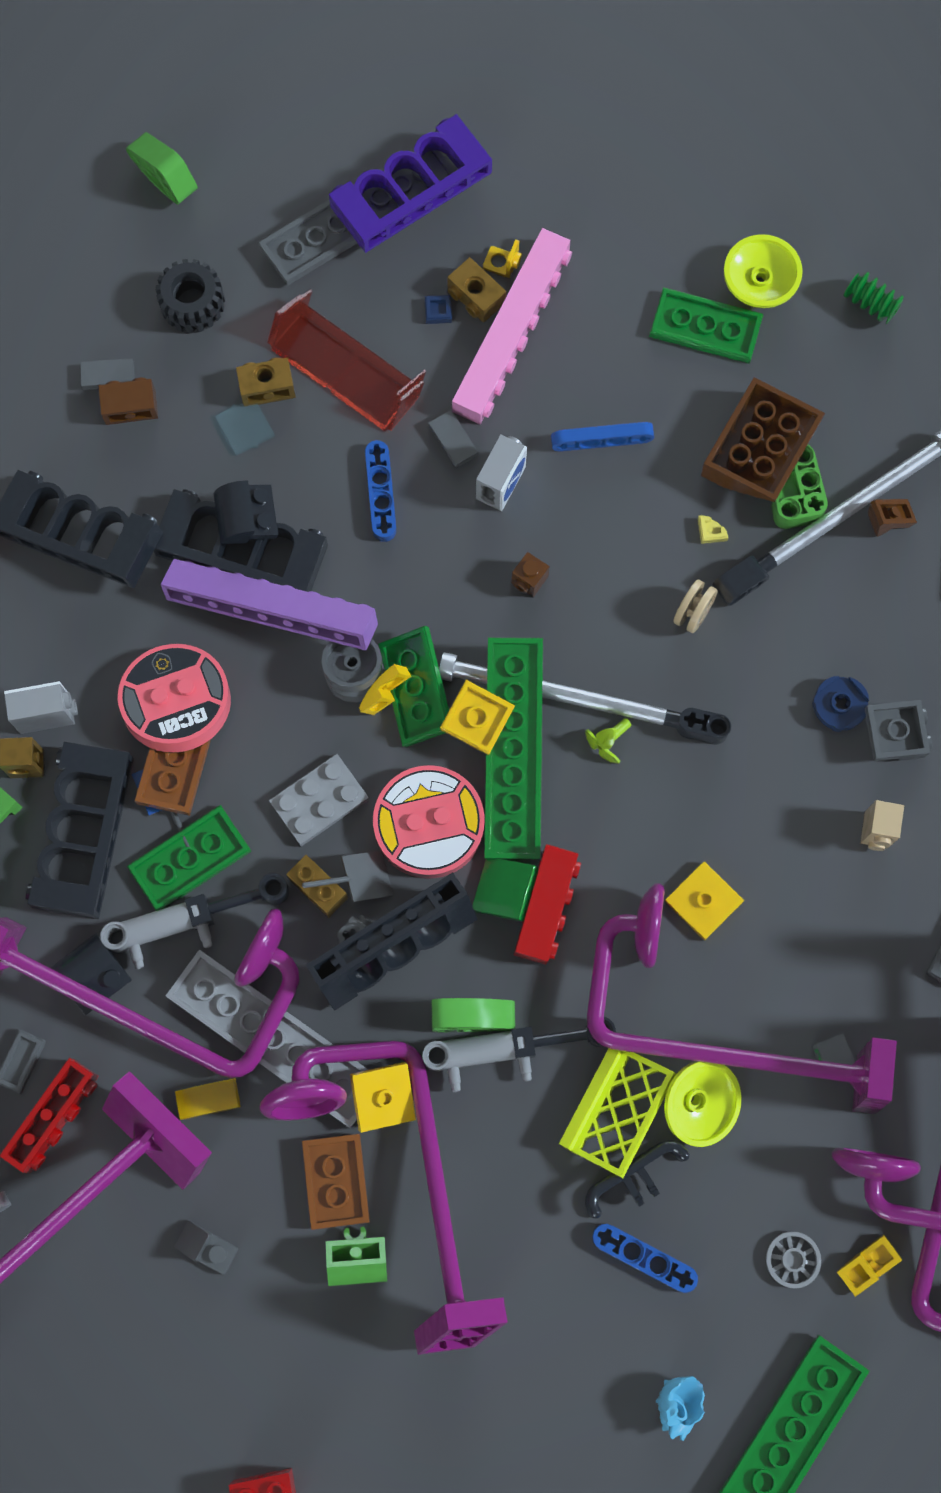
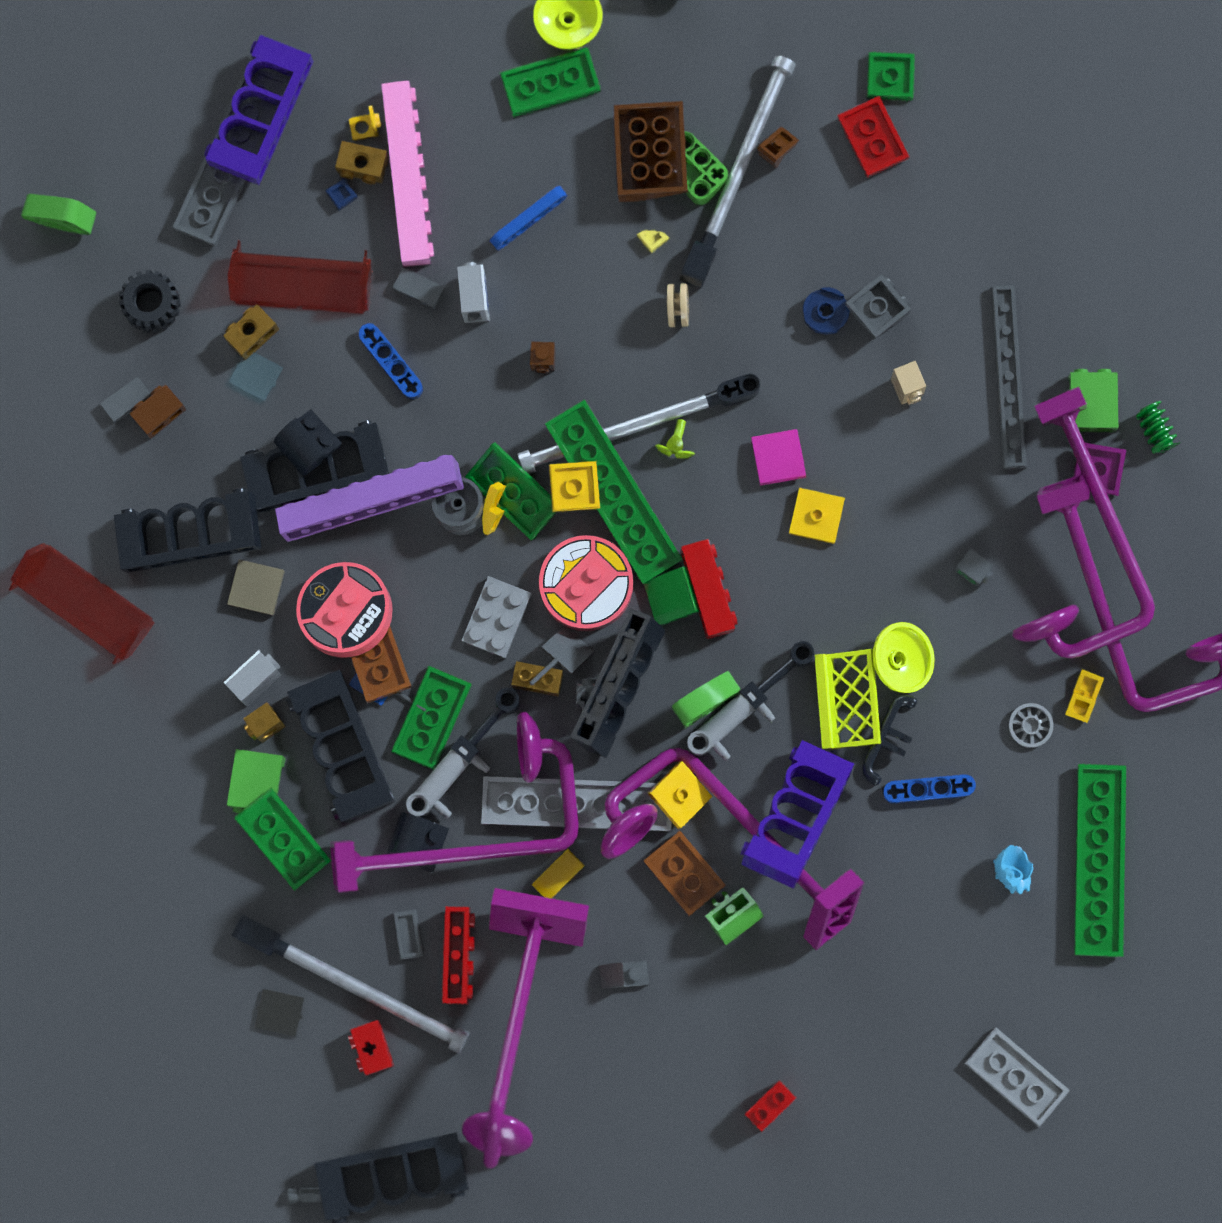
camera: 25 degrees left, 5 degrees up
(107, 624) = (256, 587): none -> dark tan tile
(429, 1230) = (778, 862): none -> dark purple fence
(702, 818) = (778, 457): none -> dark pink slope
(869, 1076) = (1004, 567): magenta piece -> none

